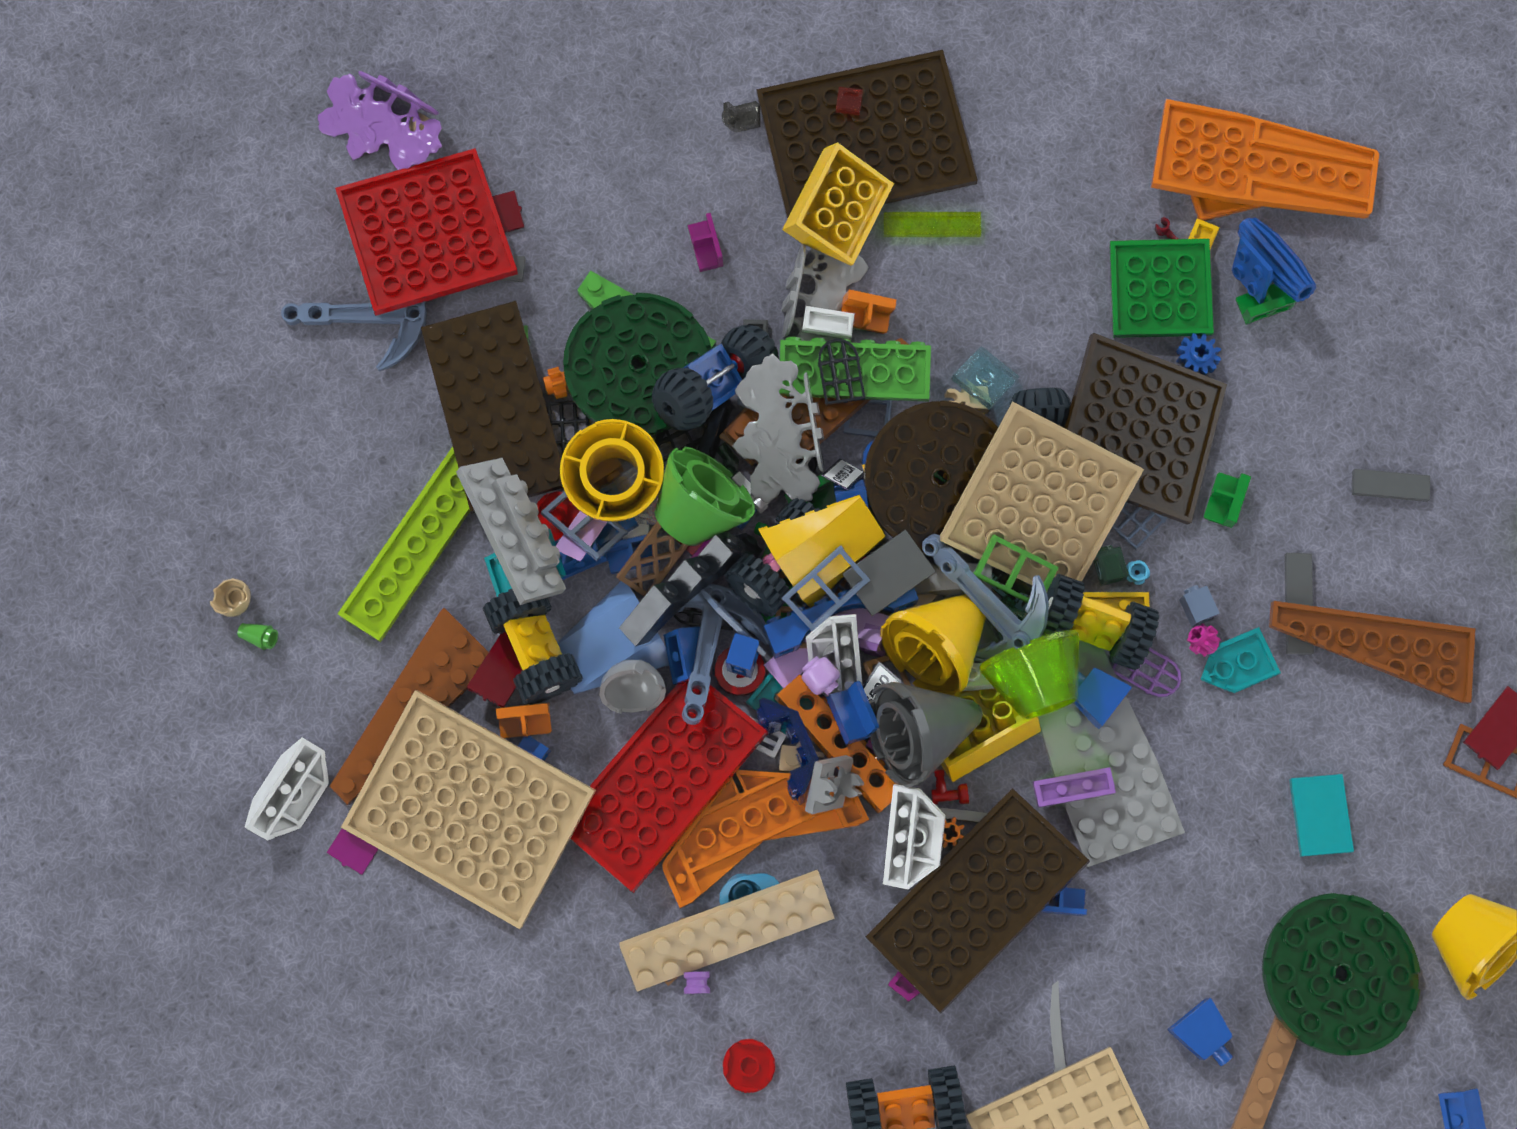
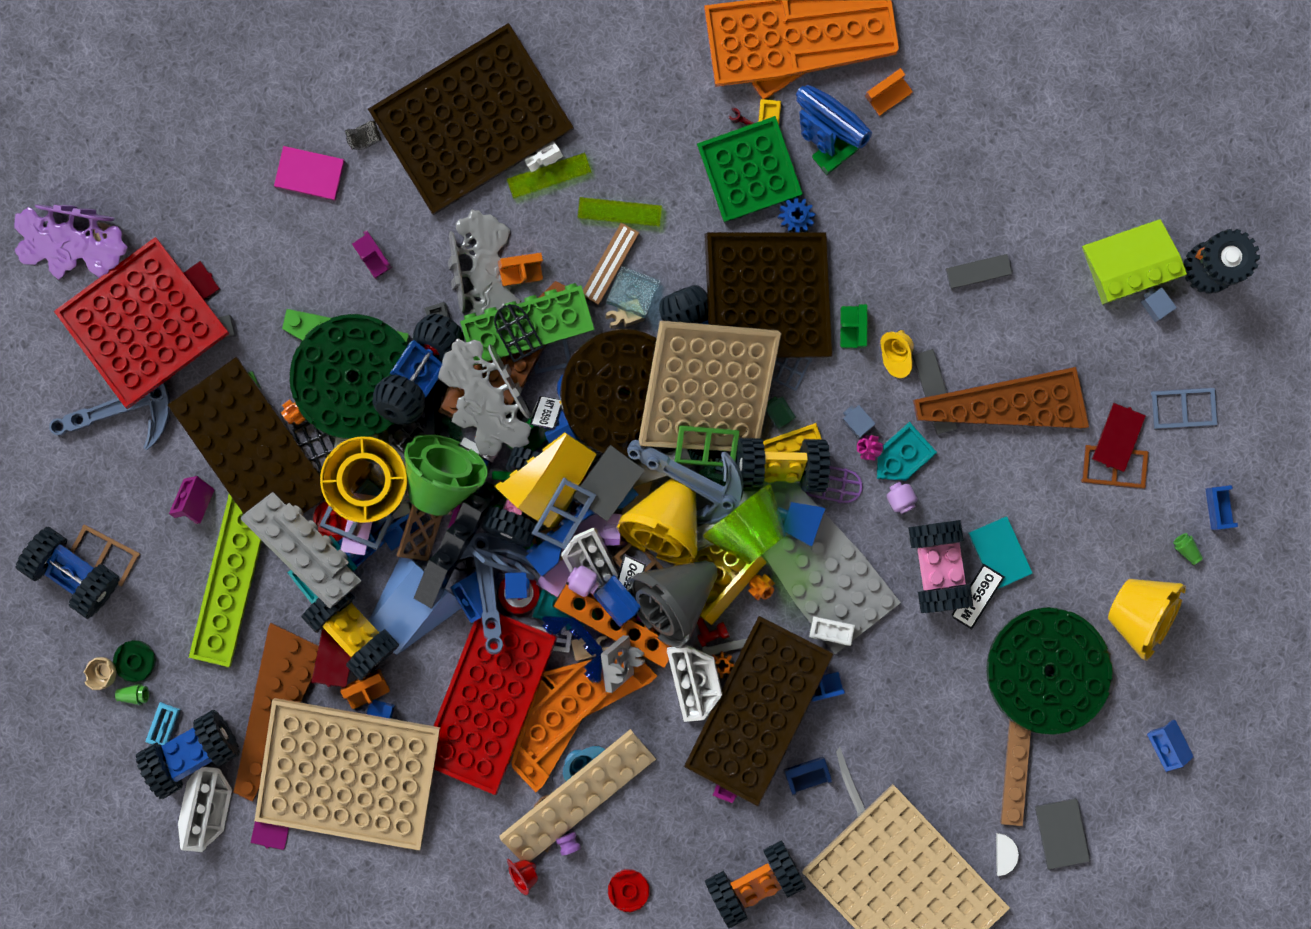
camera: 15 degrees left, 10 degrees up
(226, 448) = (49, 557): none -> black plate
(266, 724) = (169, 763): none -> black plate
(271, 605) = (142, 660): none -> dark green tile
(284, 690) = (169, 708): none -> medium azure tile
(285, 470) = (110, 541): none -> medium nougat window
(409, 439) = (192, 499): none -> magenta panel
(630, 1000) = (523, 875): none -> red piece
(632, 687) = (440, 637): light grey cylinder -> none
(667, 137) = (309, 173): none -> dark pink tile
(828, 322) = (493, 289): white tile -> none
(838, 204) = (468, 188): yellow slope -> none
(849, 100) = (447, 94): clear red tile -> none
(936, 201) = (546, 156): none -> white plate
(969, 339) = (610, 263): none -> medium nougat tile
(998, 288) = (619, 212): none -> clear neon green tile
(1009, 1000) = (807, 775): none -> dark blue panel
(1025, 757) = (761, 587): none -> orange gear
(1074, 787) = (805, 599): medium lavender plate -> none
(1093, 835) = (831, 631): none -> white plate
(1143, 569) = (802, 404): medium azure plate -> none
(1204, 1032) = (960, 749): blue torso -> none
(1224, 710) = (901, 498): none -> lavender head
(1248, 802) = (941, 566): none -> plate
(1268, 543) = (897, 353): none -> yellow piece
(1279, 857) = (982, 588): none -> sticker
(1345, 256) = (888, 92): none -> orange panel

